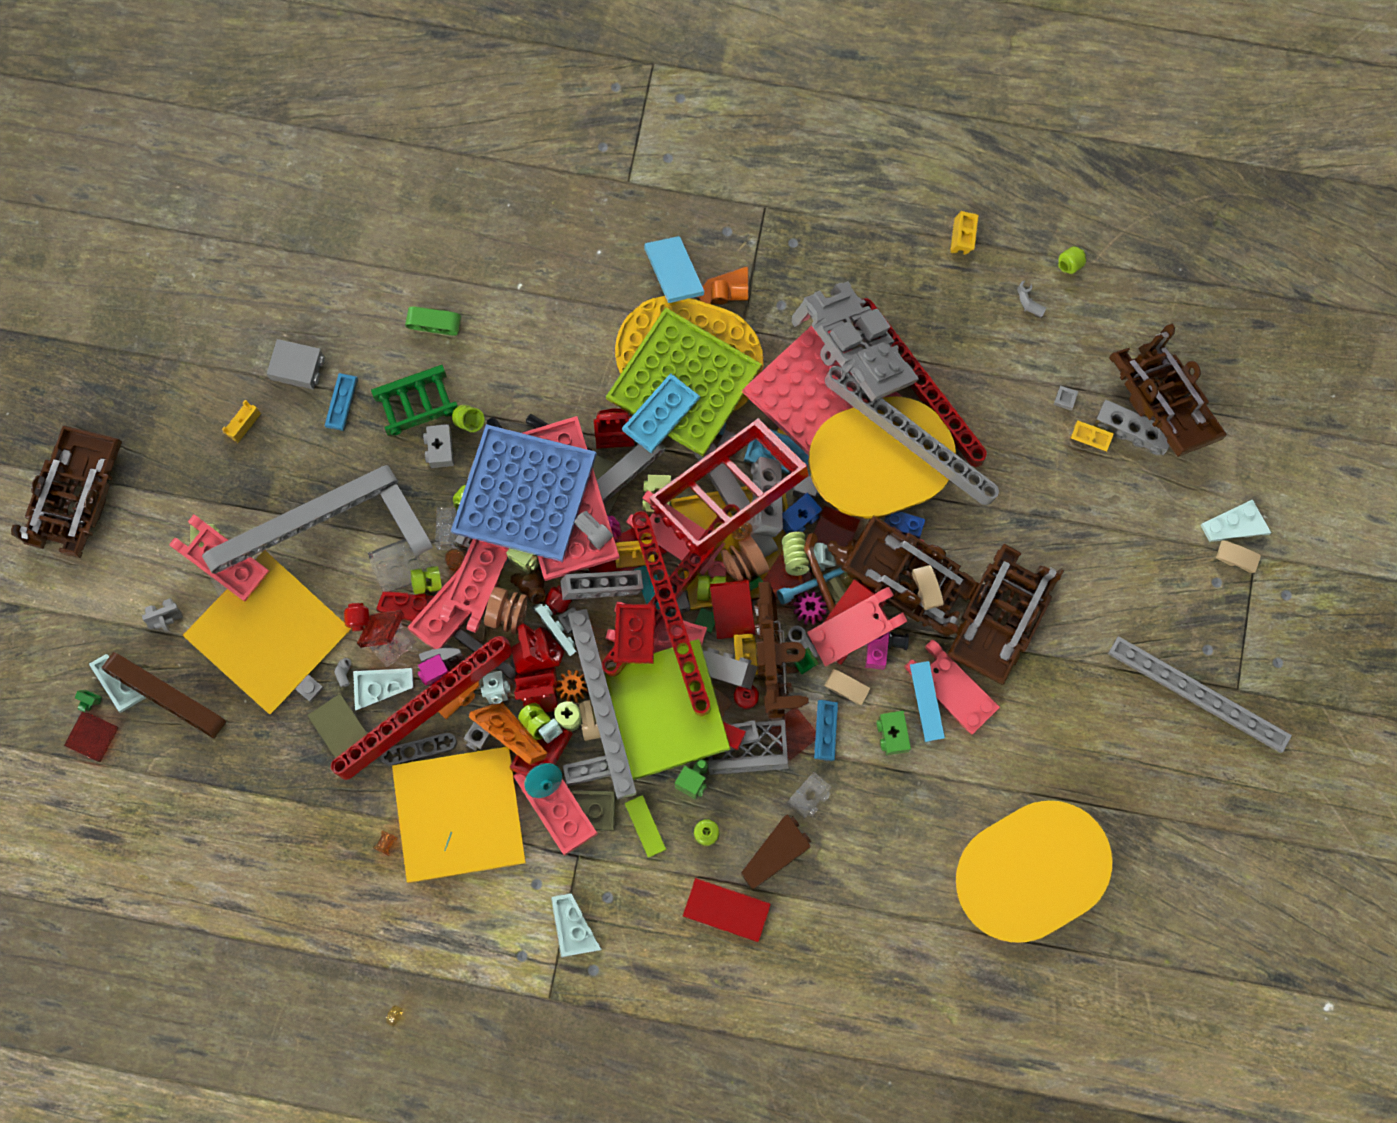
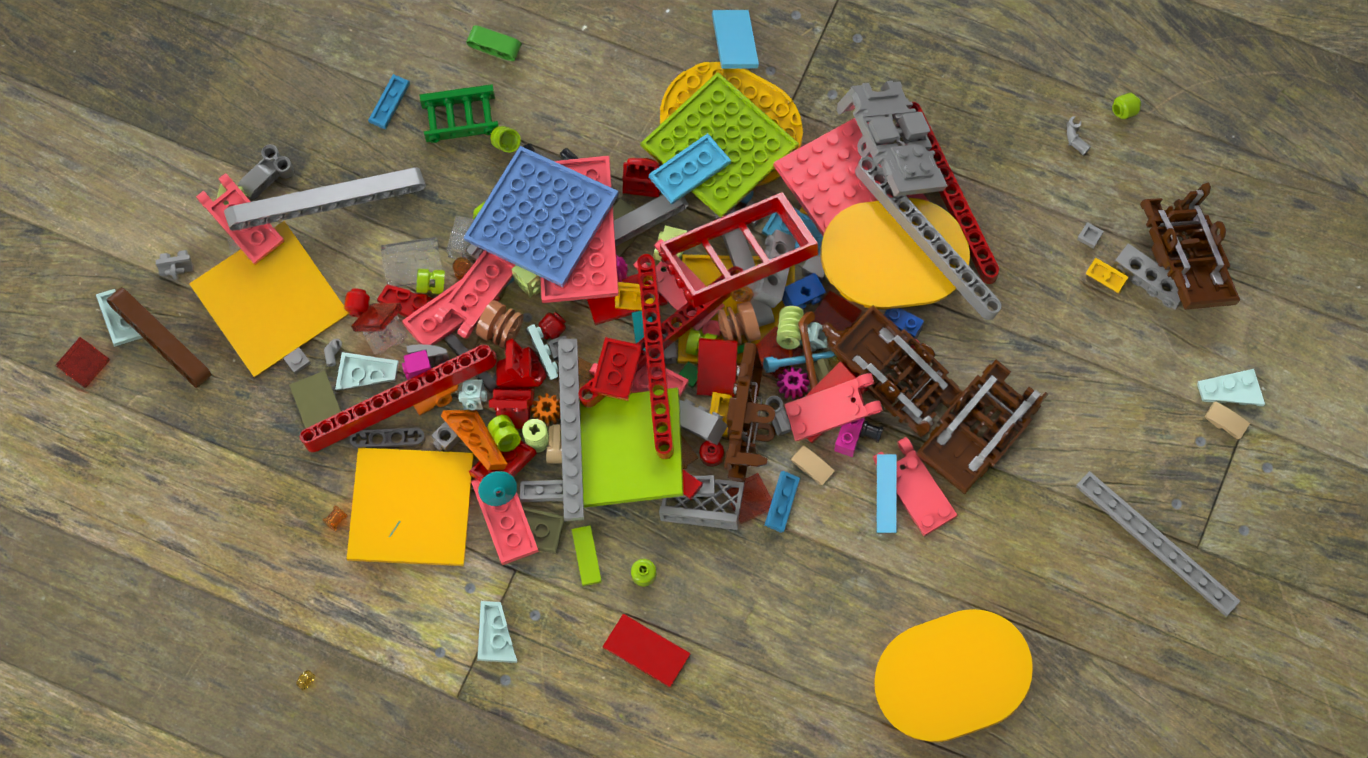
camera: 15 degrees right, 5 degrees down
(75, 457) = (128, 102): reddish brown piece -> none
(87, 700) = (86, 327): green tile -> none
(232, 501) = (266, 172): none -> light grey piece
(242, 422) = (291, 101): yellow hinge -> none
(295, 364) = (354, 58): light grey brick -> none
(406, 520) = (424, 221): light grey beam -> none
(444, 455) = (473, 170): light grey brick -> none
(530, 585) = (529, 306): reddish brown animal -> none
(550, 731) = (515, 444): light aqua tile -> none
(596, 533) = (600, 265): light grey piece -> none
(601, 584) = (596, 318): light grey brick -> none
(691, 781) = (640, 520): bright green brick -> none
(726, 287) = (782, 67): orange panel -> none
(777, 851) = (706, 606): reddish brown slope -> none
(799, 799) = (756, 549): clear brick -> none
(807, 662) = (776, 431): green tile -> none
(897, 722) = (847, 506): bright green brick -> none
(928, 587) = (910, 383): tan slope -> none
(964, 232) = (1026, 59): yellow hinge -> none

